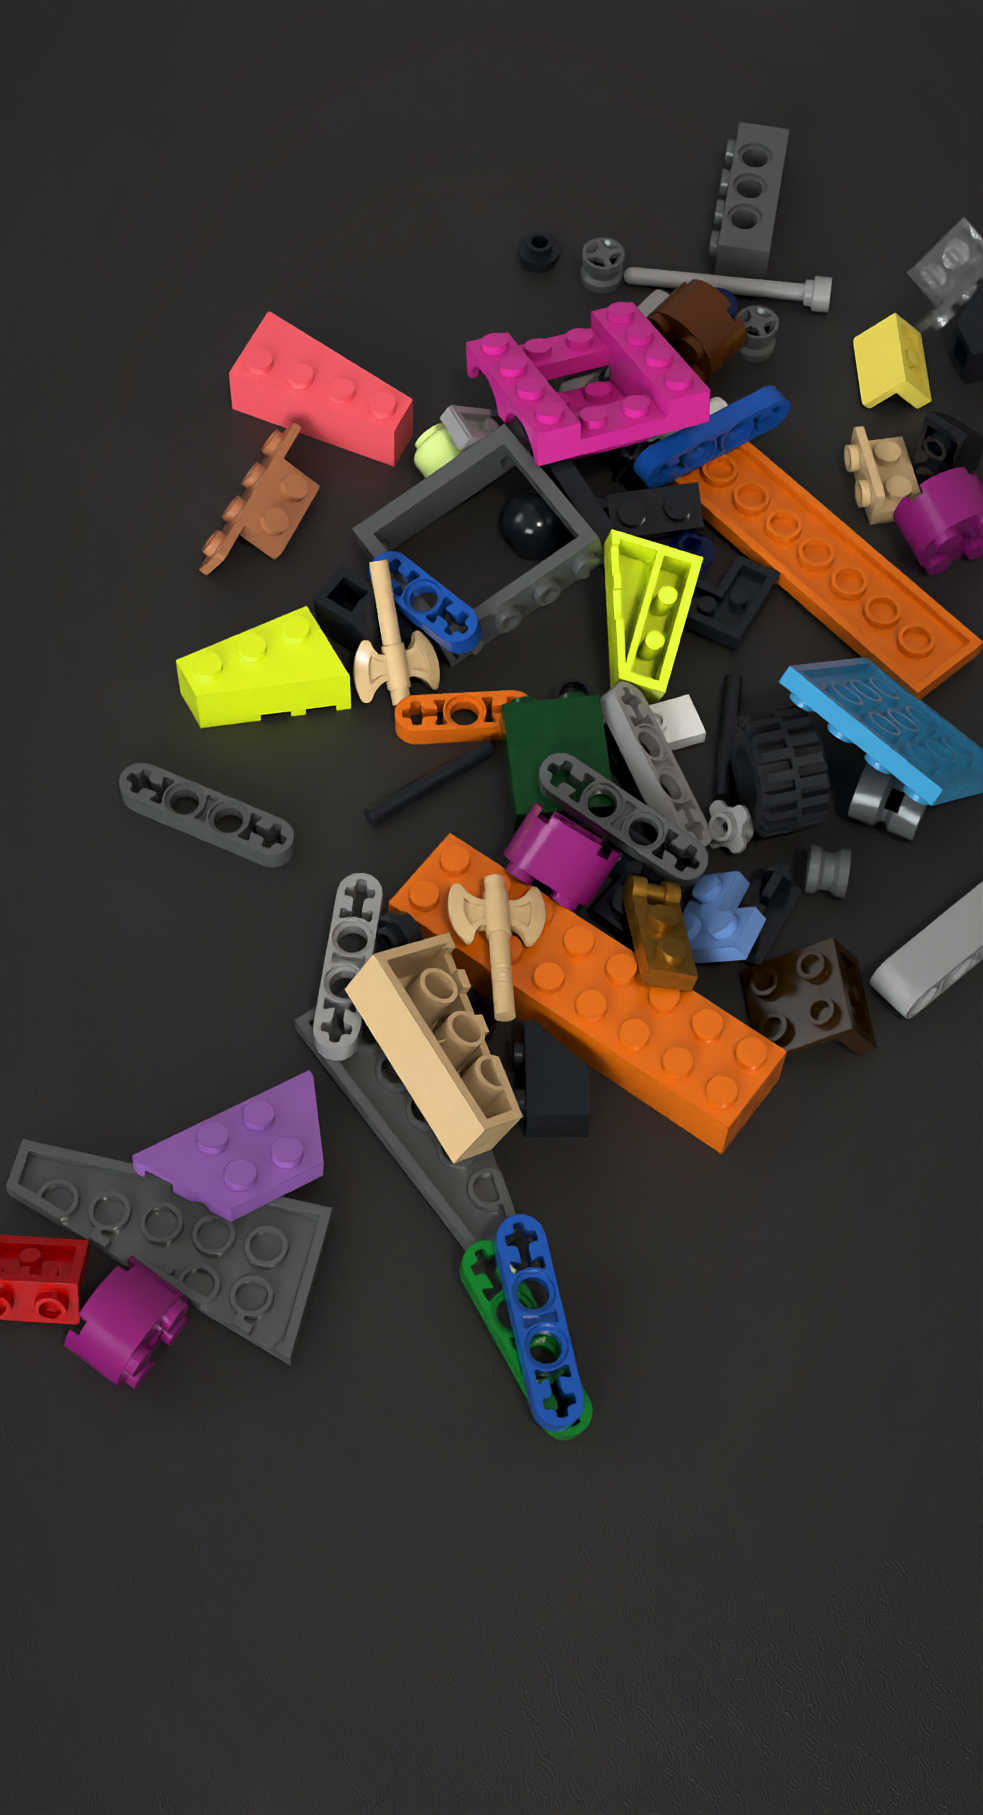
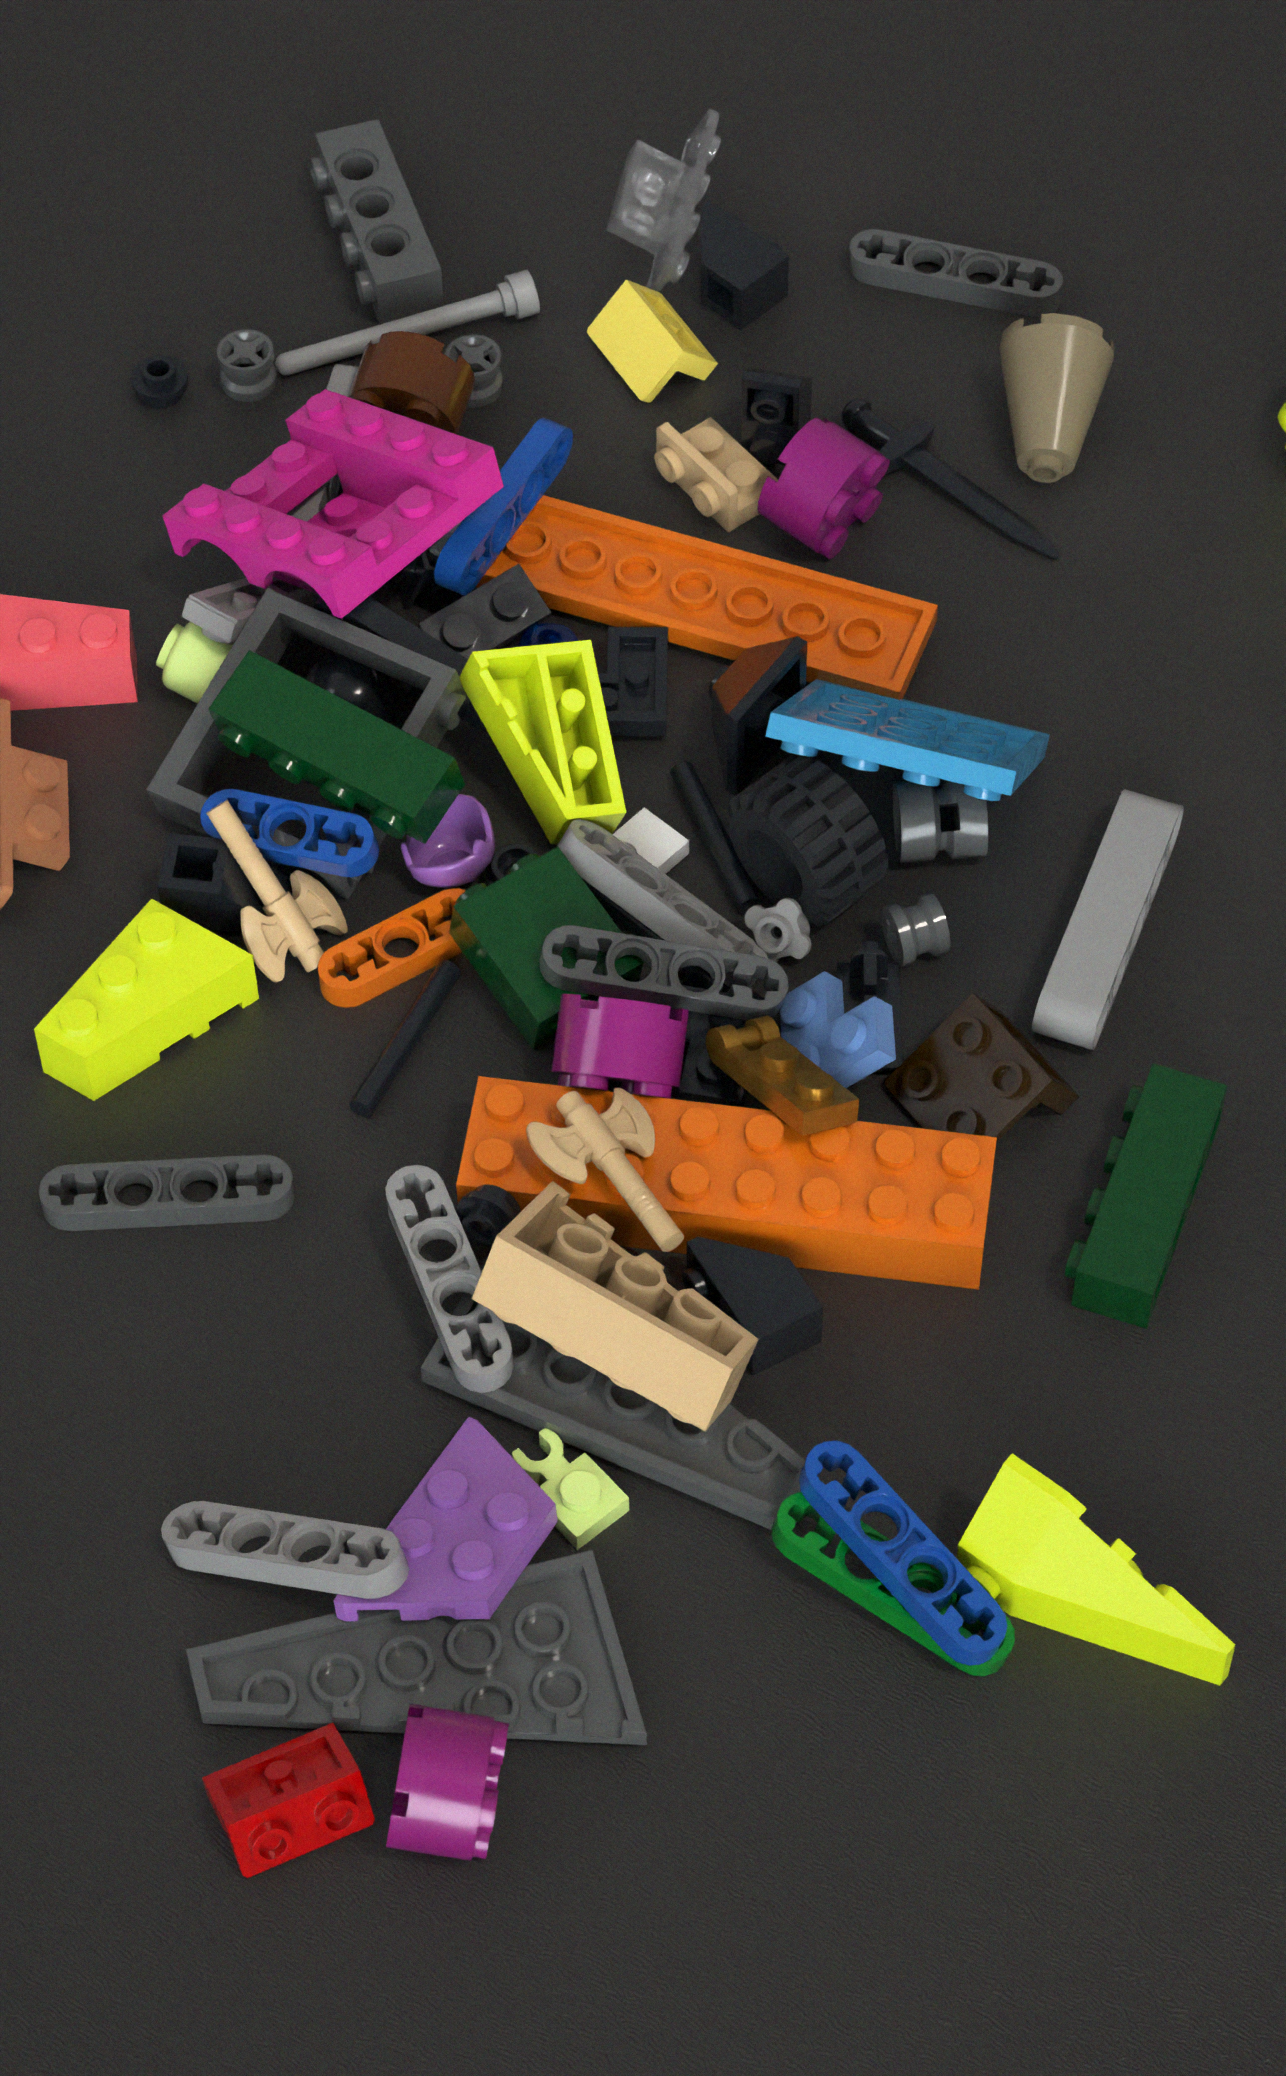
camera: 25 degrees left, 5 degrees down
(131, 1097) = (358, 1564): none -> light grey beam
(350, 1161) = (581, 1490): none -> yellowish green plate
(485, 557) = (336, 748): none -> dark green brick
(536, 657) = (456, 849): none -> medium lavender hair
(634, 1376) = (1061, 1576): none -> neon yellow wedge
(805, 642) = (743, 702): none -> black slope
(880, 1145) = (1147, 1195): none -> dark green brick

